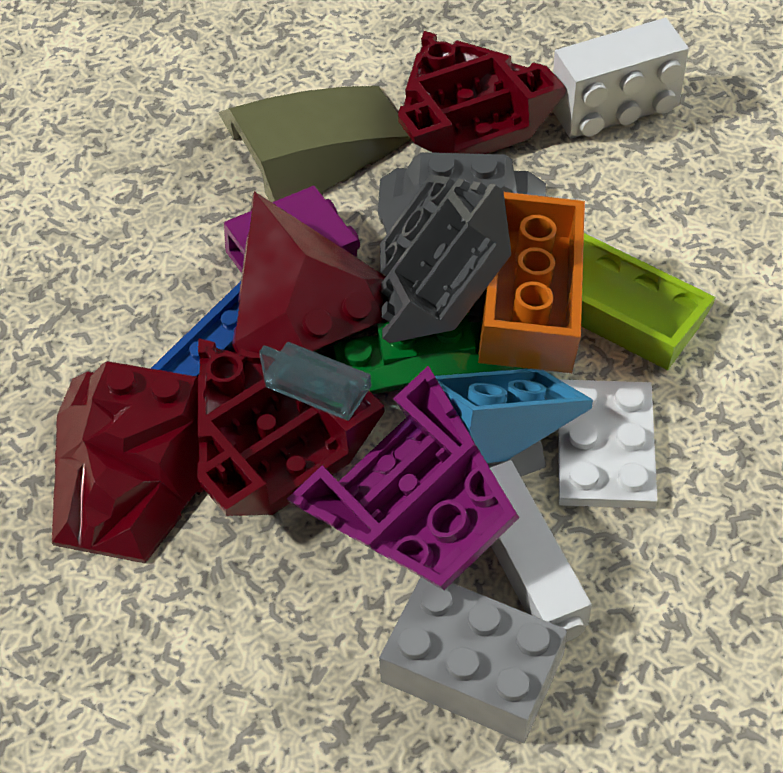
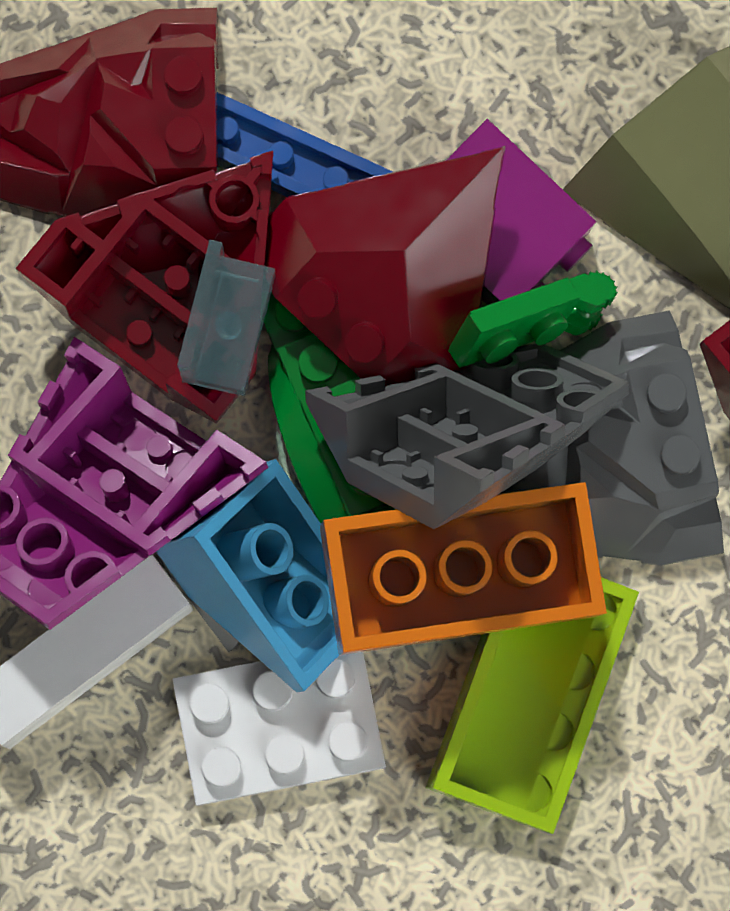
camera: 75 degrees right, 25 degrees up
(369, 229) = (533, 316): none -> green hinge

